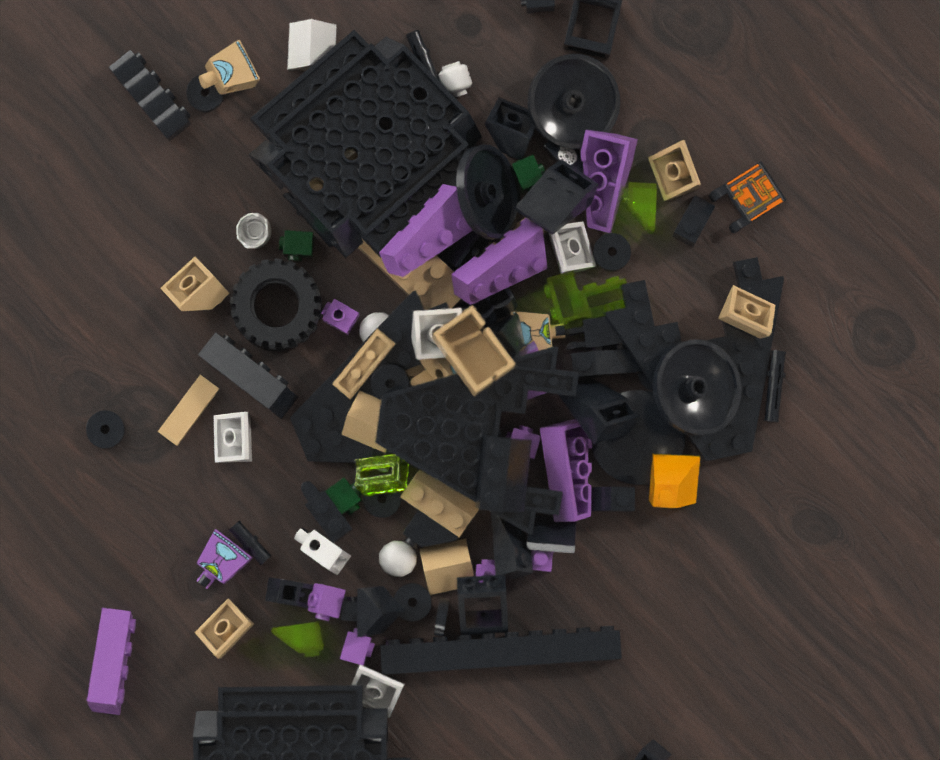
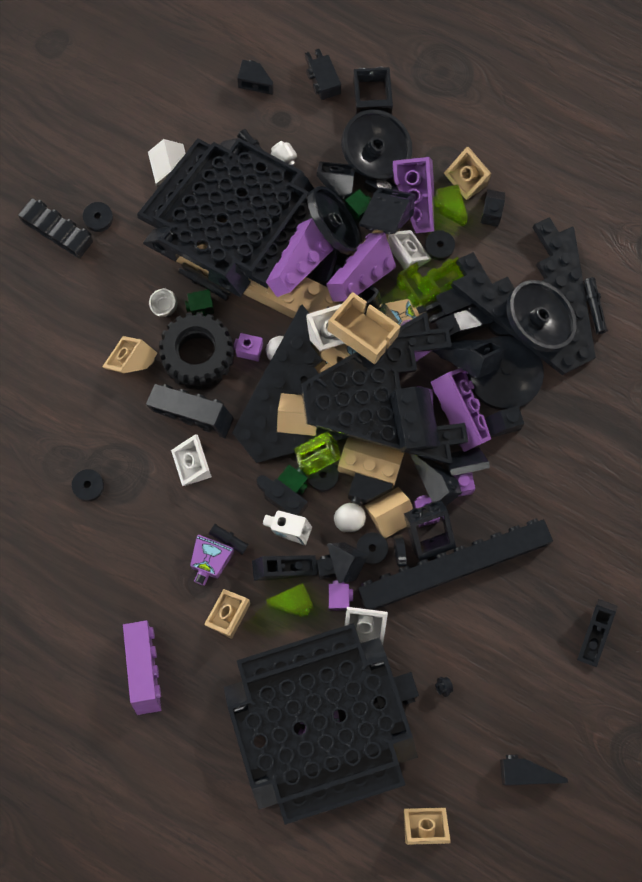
camera: 20 degrees left, 10 degrees down
(188, 410) = (150, 451): tan tile -> none
(230, 70) = (112, 193): tan torso -> none
(325, 601) = (303, 564): medium lavender brick -> none
(364, 363) = (278, 371): tan tile -> none
(673, 480) = (544, 394): light orange slope -> none
(748, 313) = (559, 256): tan slope -> none
(752, 195) = (529, 177): flag -> none

